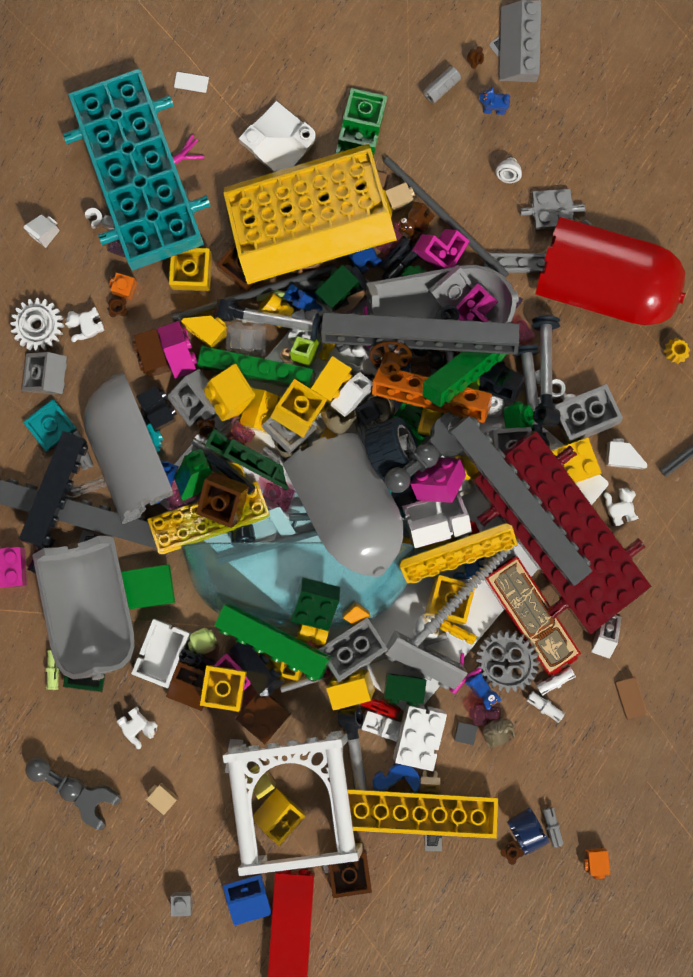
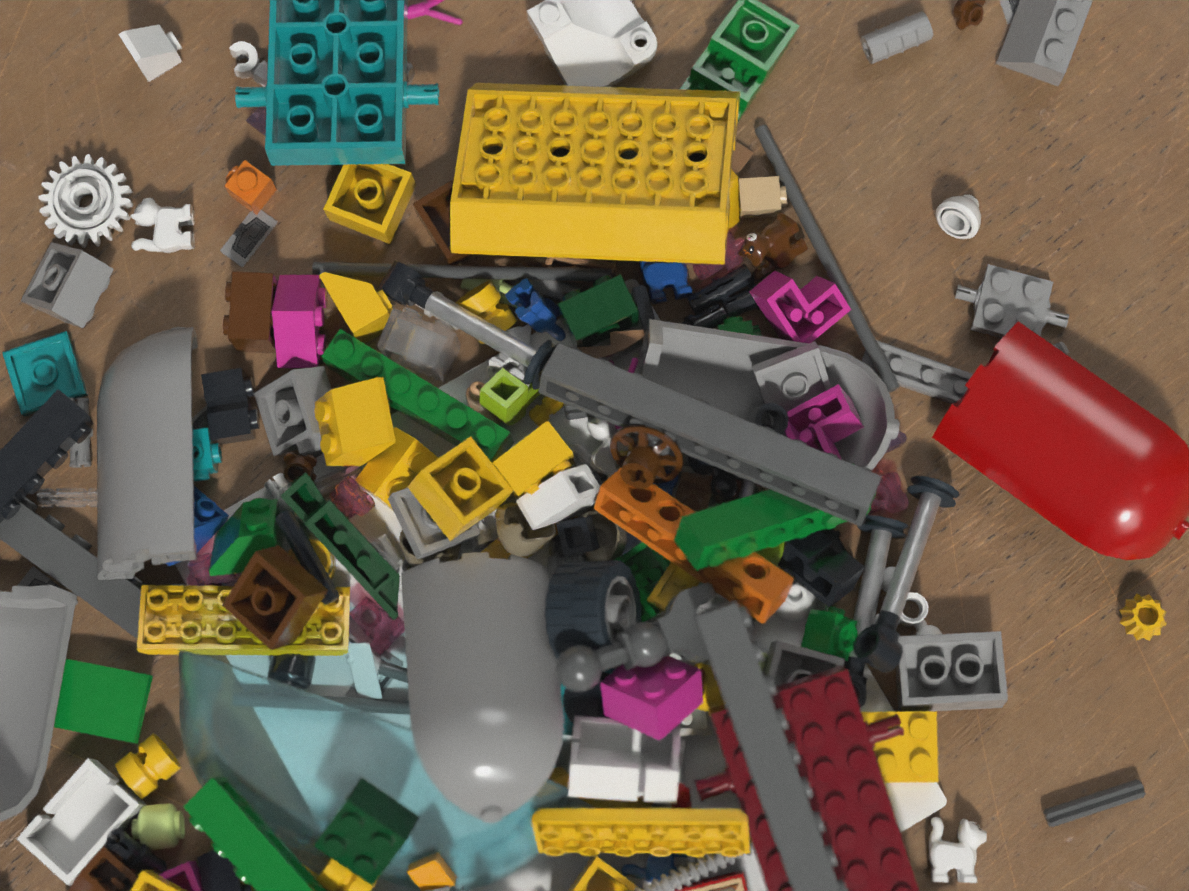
camera: 25 degrees right, 5 degrees down
(113, 303) = (223, 210): reddish brown plate -> none
(134, 310) = (248, 237): none -> sticker
(184, 612) = (147, 766): none -> yellow wheel
(494, 102) = (974, 94): blue animal -> none
(623, 455) = (988, 764): white slope -> none

